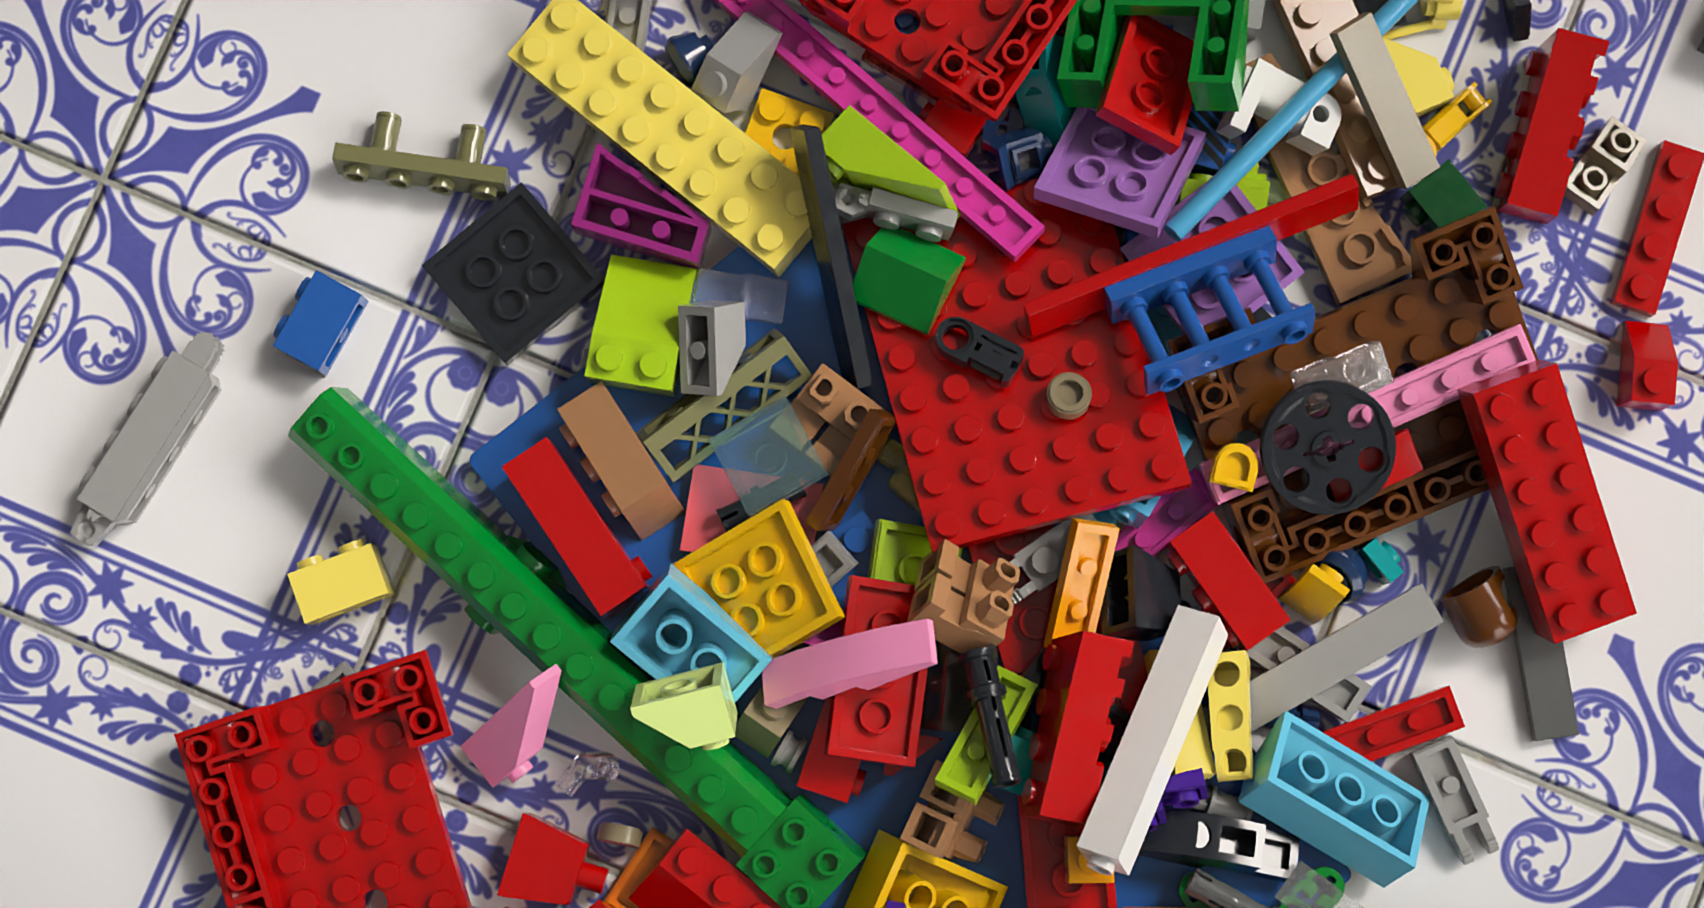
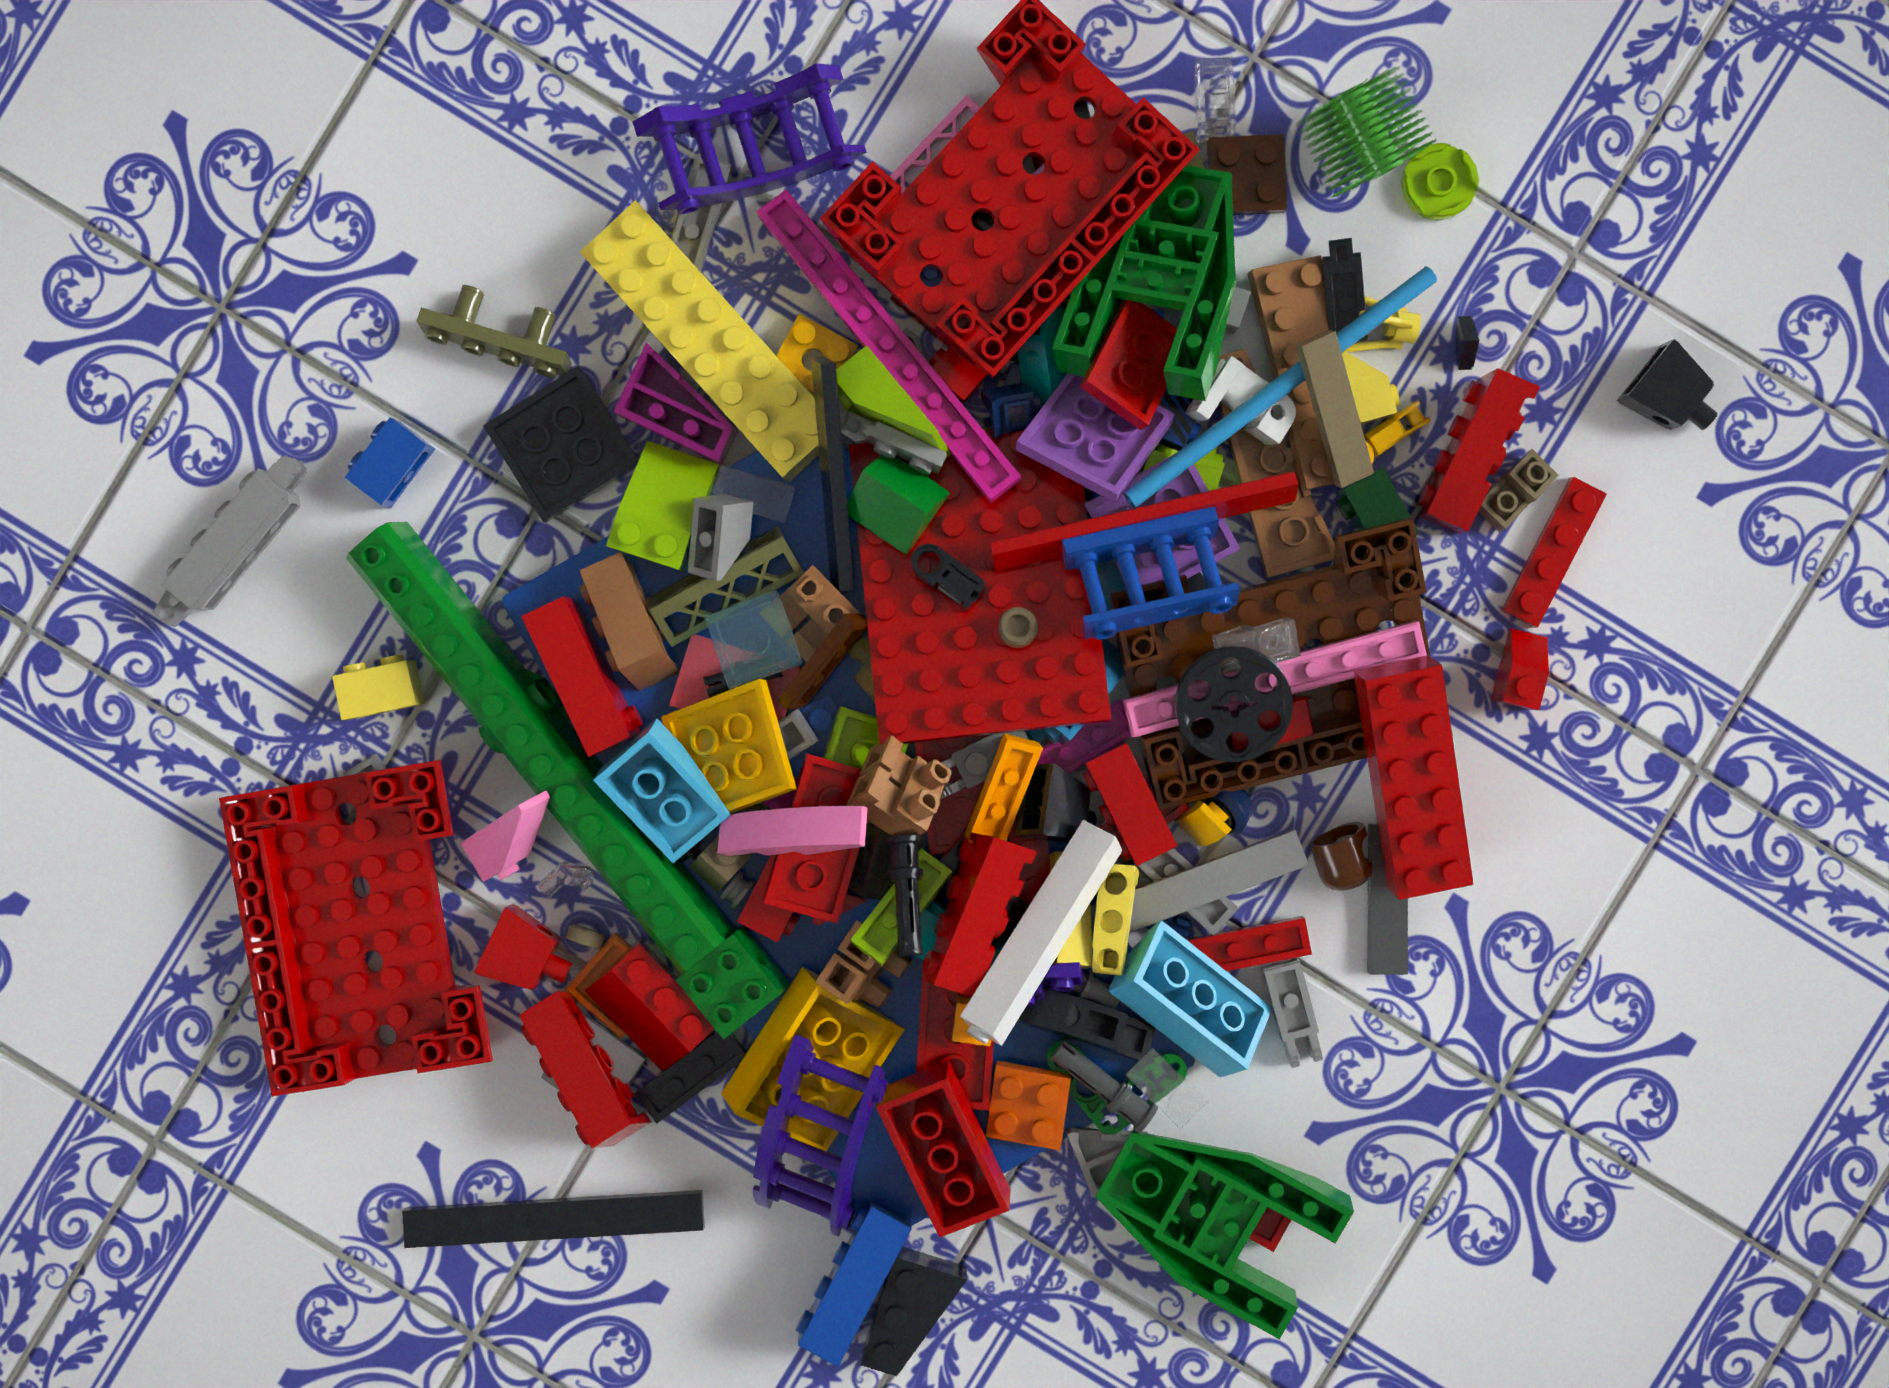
camera: 15 degrees right, 5 degrees up
(687, 54) = (742, 278): dark blue cone -> none
(689, 707) = (649, 848): yellowish green slope -> none
(737, 64) = (778, 290): light grey slope -> none
(1234, 467) = (1151, 708): yellow tile -> none
(1381, 560) = (1266, 803): teal plate -> none

